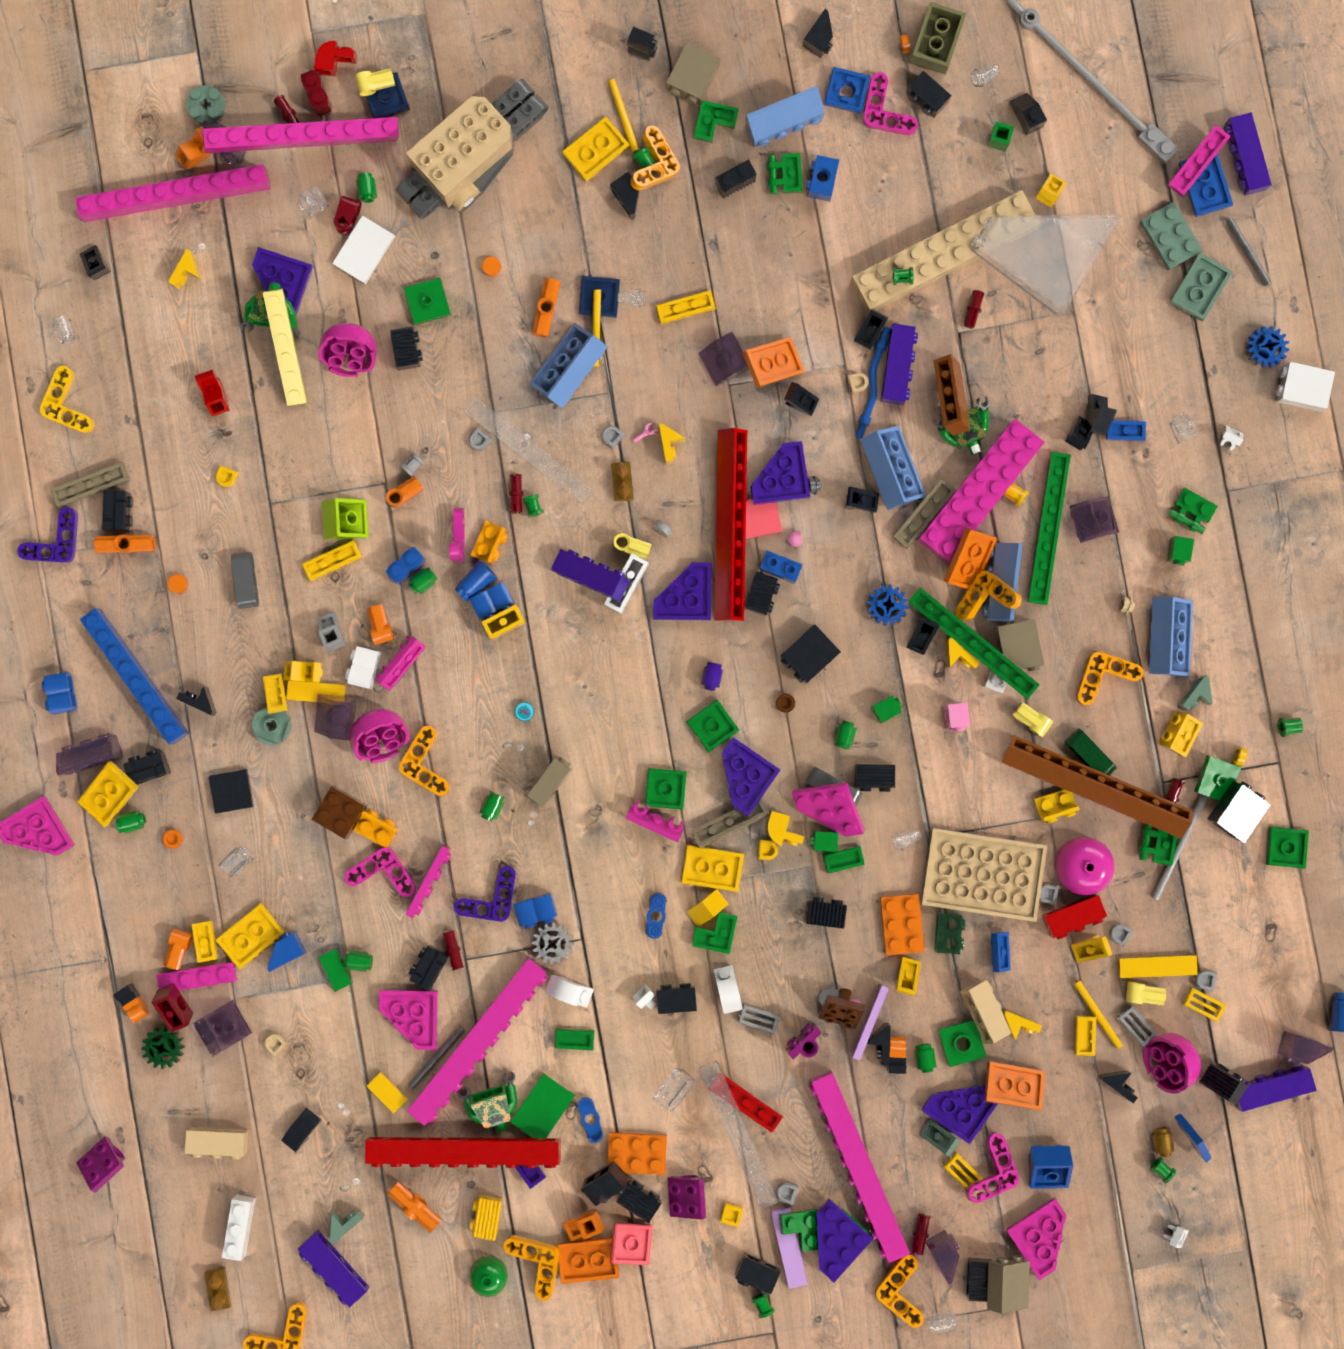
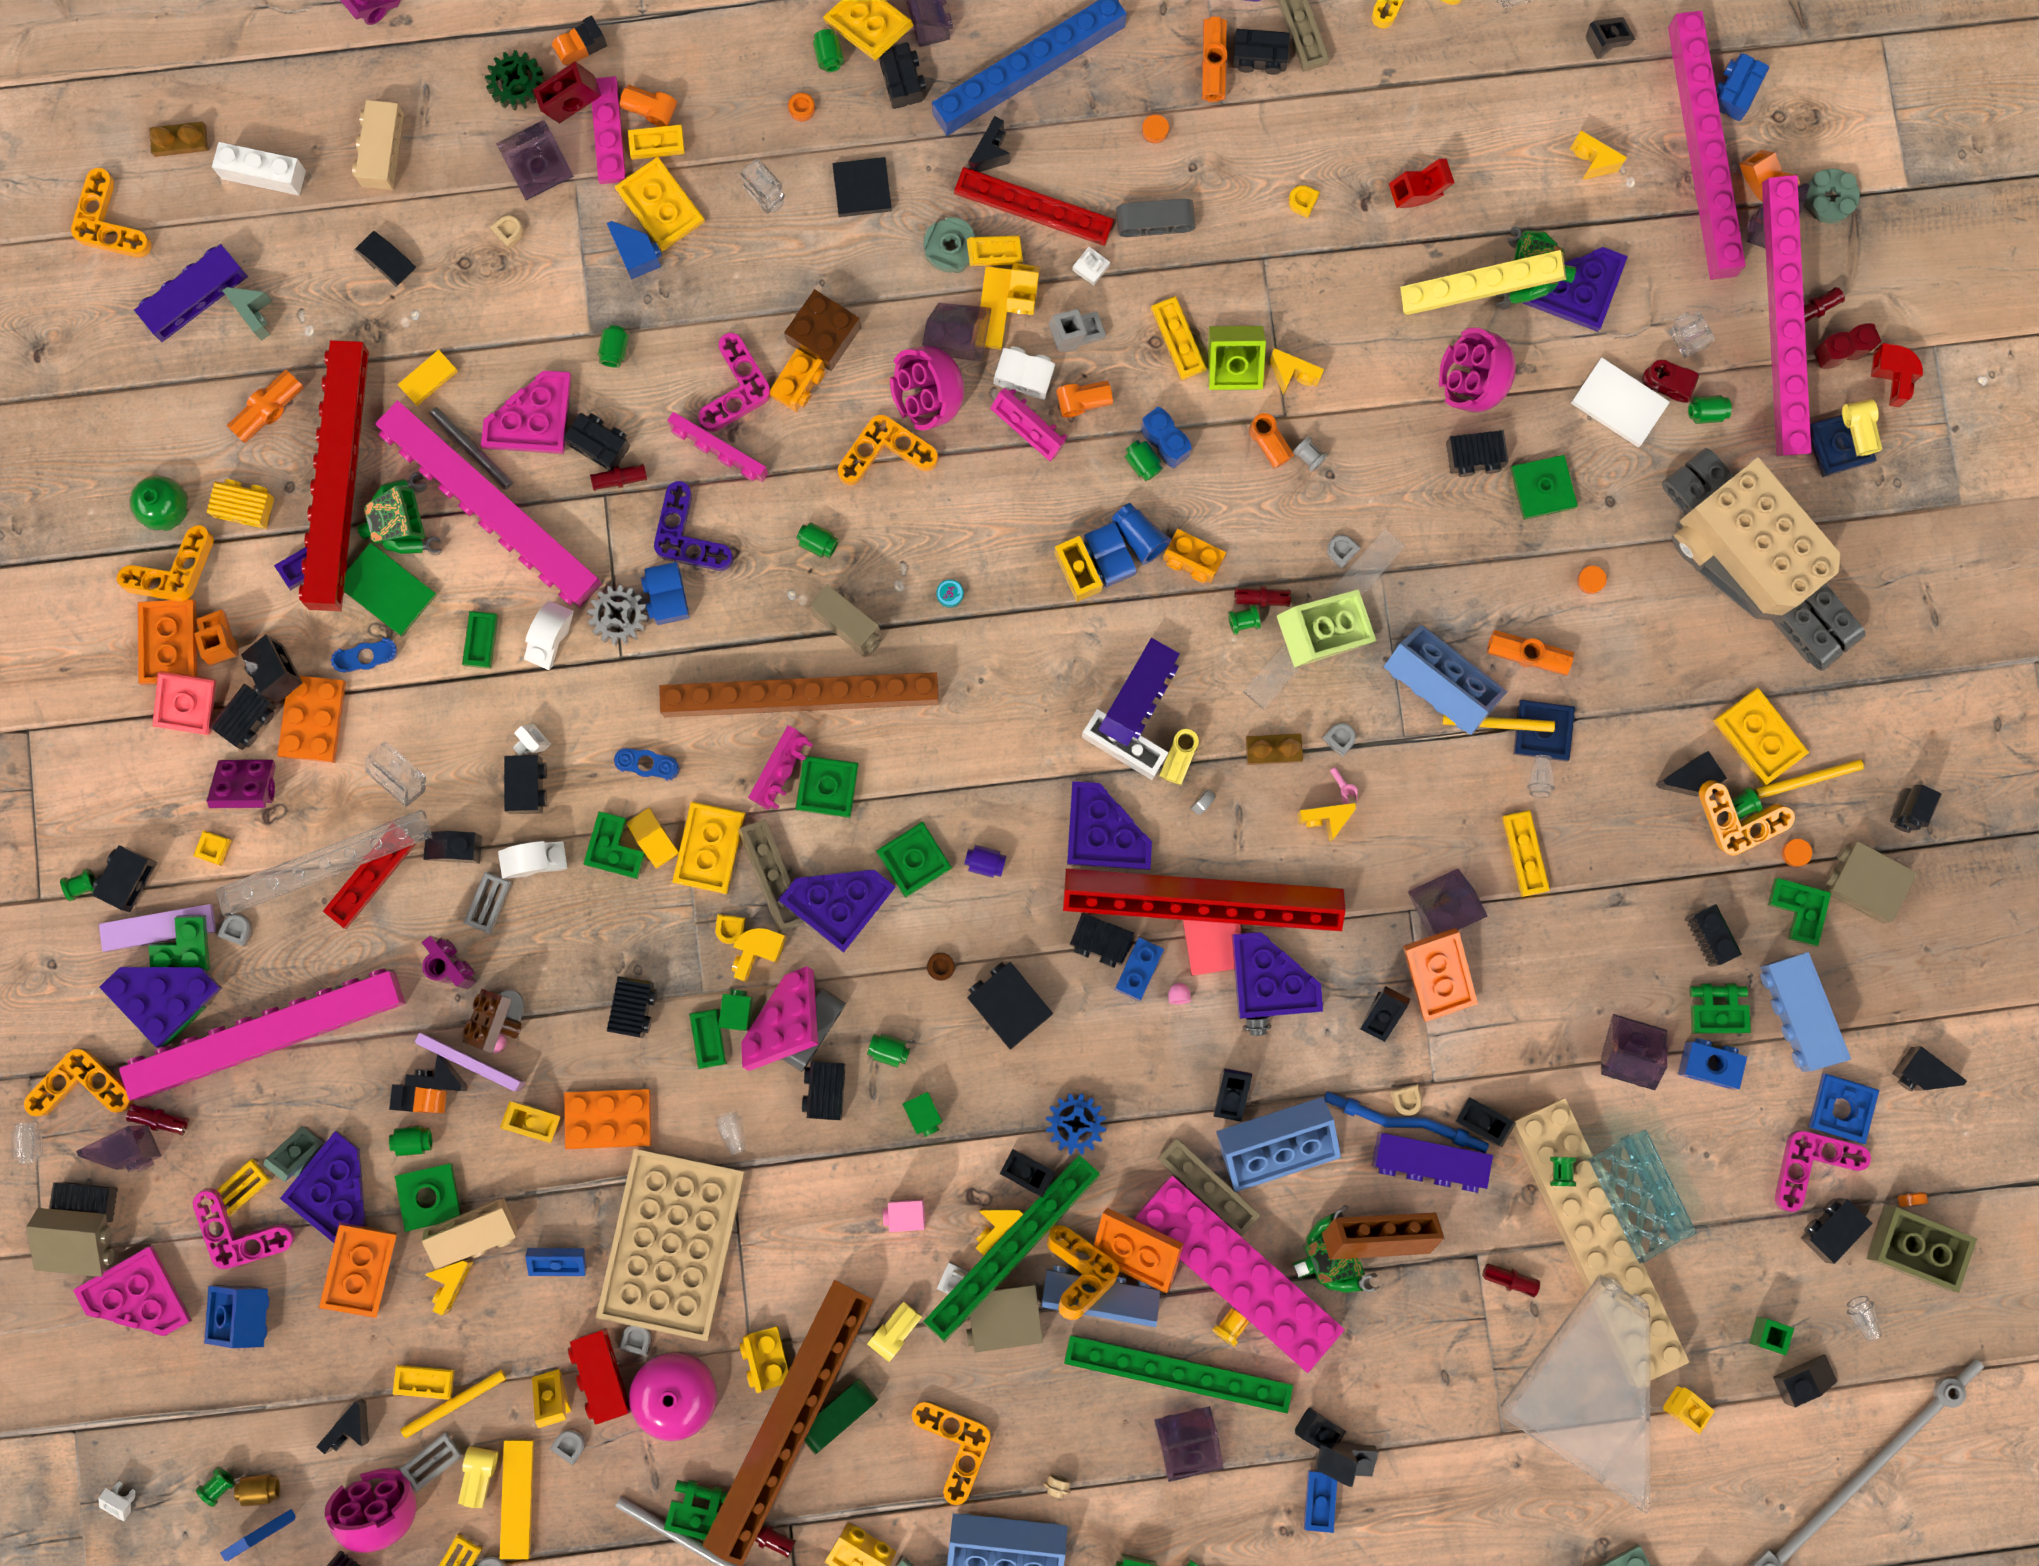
camera: 90 degrees right, 5 degrees down
(128, 170) = (1740, 86): none -> blue brick
(239, 668) = (1034, 206): none -> red tile
(282, 624) = (1091, 266): none -> white tile
(335, 970) = (602, 315): green tile -> none
(350, 483) = (1286, 366): none -> yellow slope
(457, 547) = (1182, 508): dark pink beam -> none
(537, 448) = (1326, 627): none -> yellowish green slope
(602, 812) = (799, 694): none -> dark orange brick
(675, 123) = (1797, 852): none -> orange tile
(722, 1045) = (453, 847): none -> black slope
(817, 230) = (1634, 1052): none -> clear purple slope
(906, 214) = (1656, 1187): none -> clear light blue fence
(943, 933) = (589, 1181): clear green brick -> none

